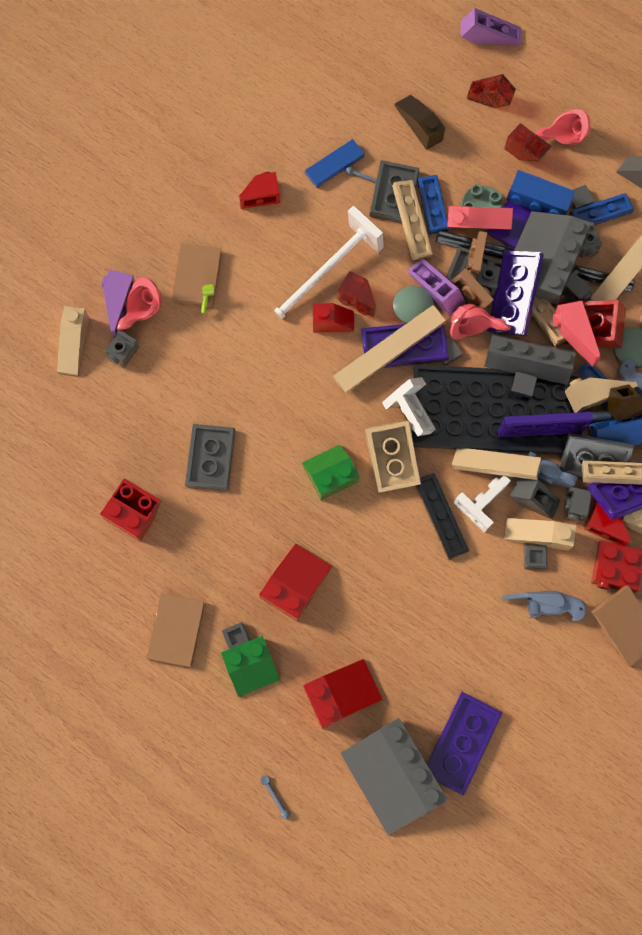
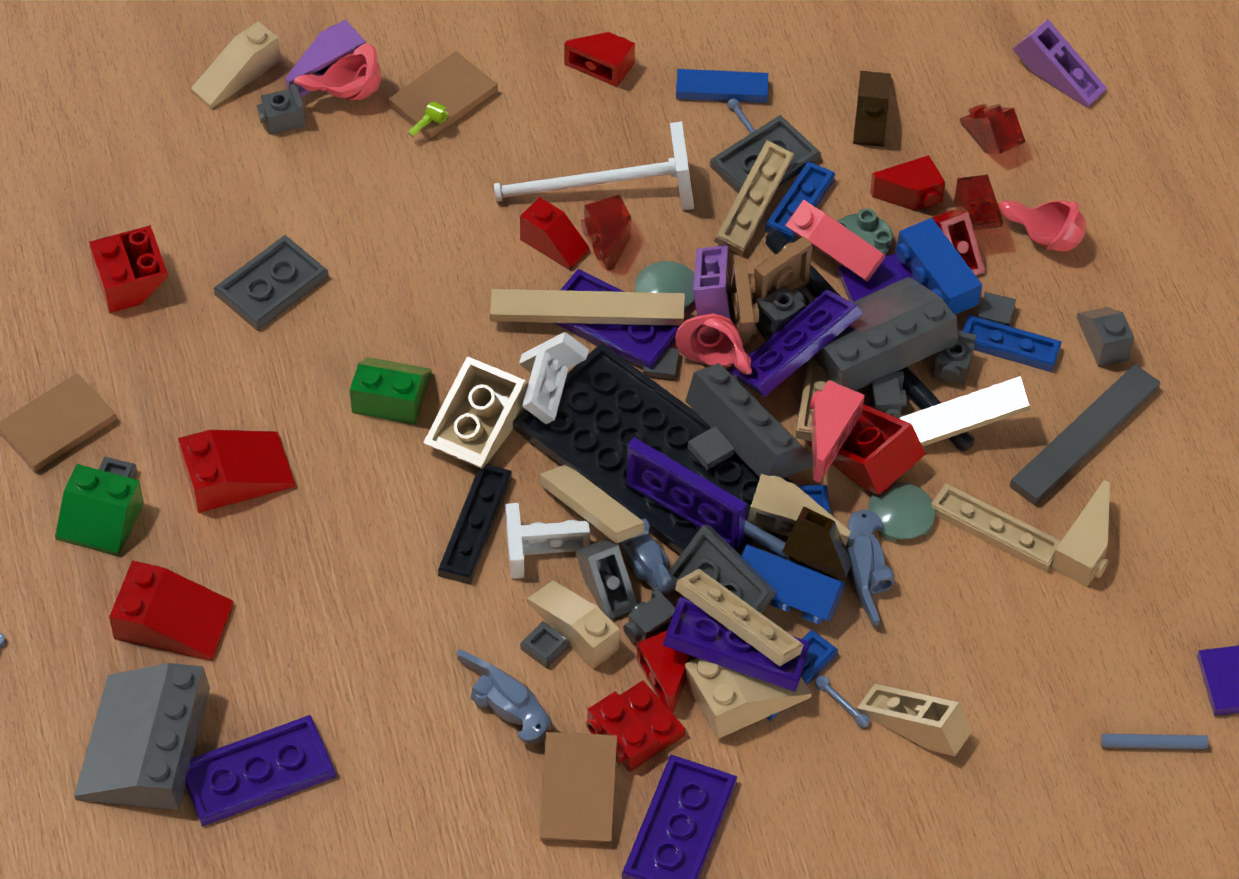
camera: 40 degrees right, 20 degrees down
(481, 155) = (909, 184): none -> red slope
(530, 164) = (959, 231): none -> red slope

